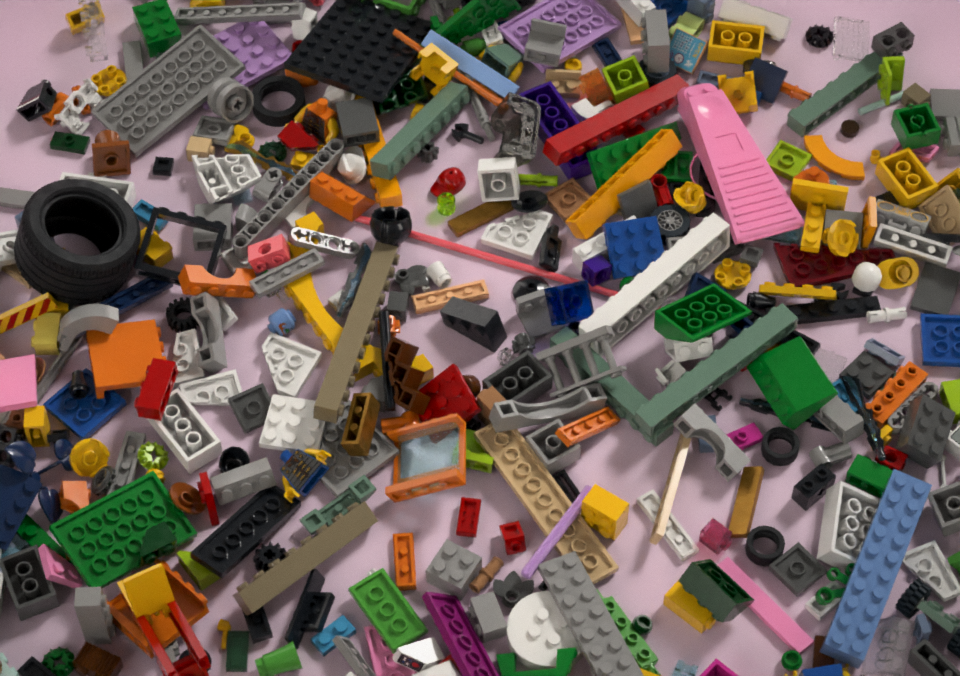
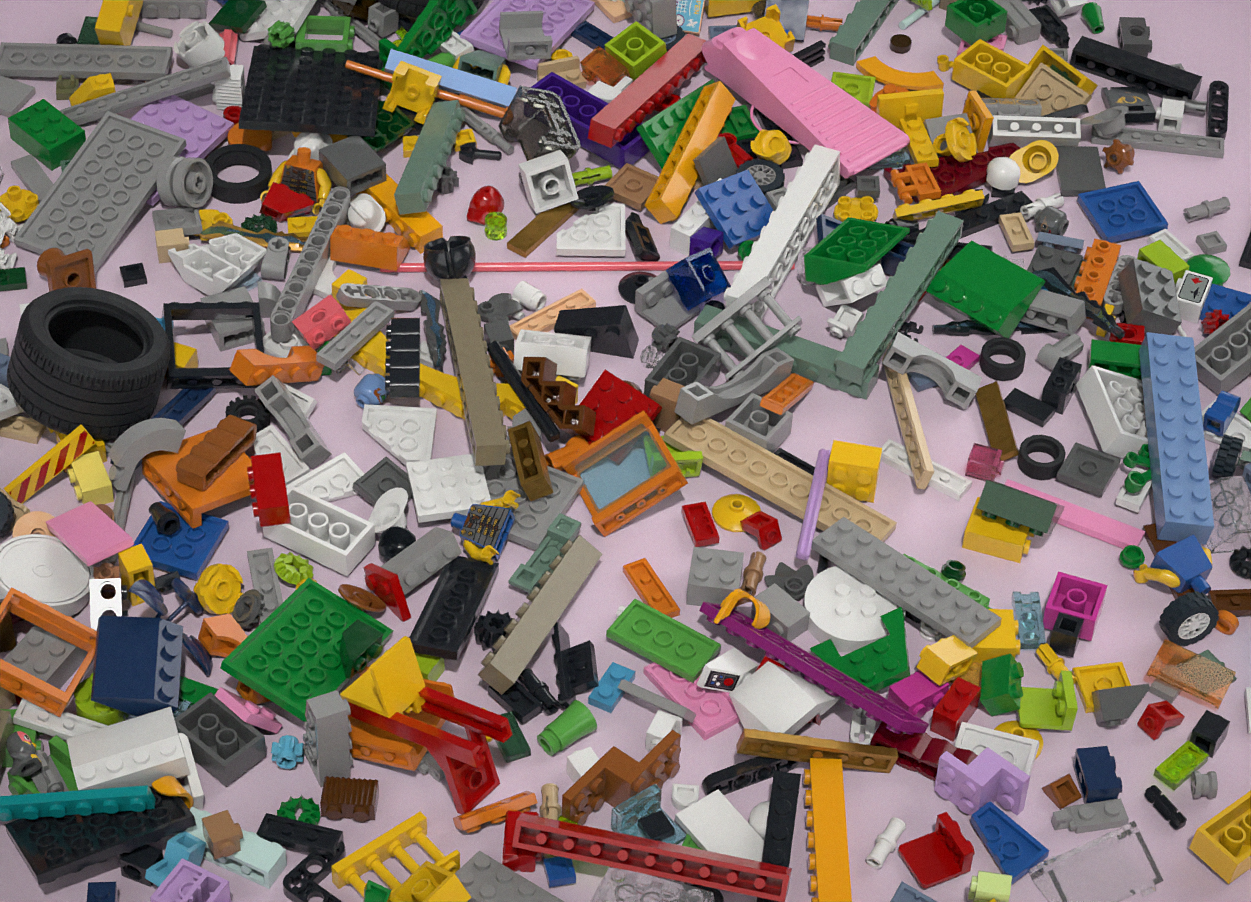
camera: 25 degrees left, 10 degrees down
(68, 610) = (287, 752): none -> medium azure gear
(134, 345) = (216, 452): none -> dark orange brick
(240, 432) = (390, 510): none -> white piece
(276, 621) = (539, 691): none -> black pin
(312, 304) = (404, 357): none -> black brick
(428, 332) = (566, 350): none -> white brick
(462, 116) = (463, 137): none -> yellow tile
(468, 609) = (740, 597): none -> light orange helmet
(494, 517) = (732, 509): none -> yellow dish
(764, 121) = (812, 54): none -> black tile
(780, 496) = (1029, 407): none -> black tile
(795, 265) = (921, 180): none -> orange plate
(852, 332) = (1016, 232): none -> tan plate
(886, 332) = (1051, 221): none -> dark grey head
(929, 556) = (1222, 412): none -> blue leg

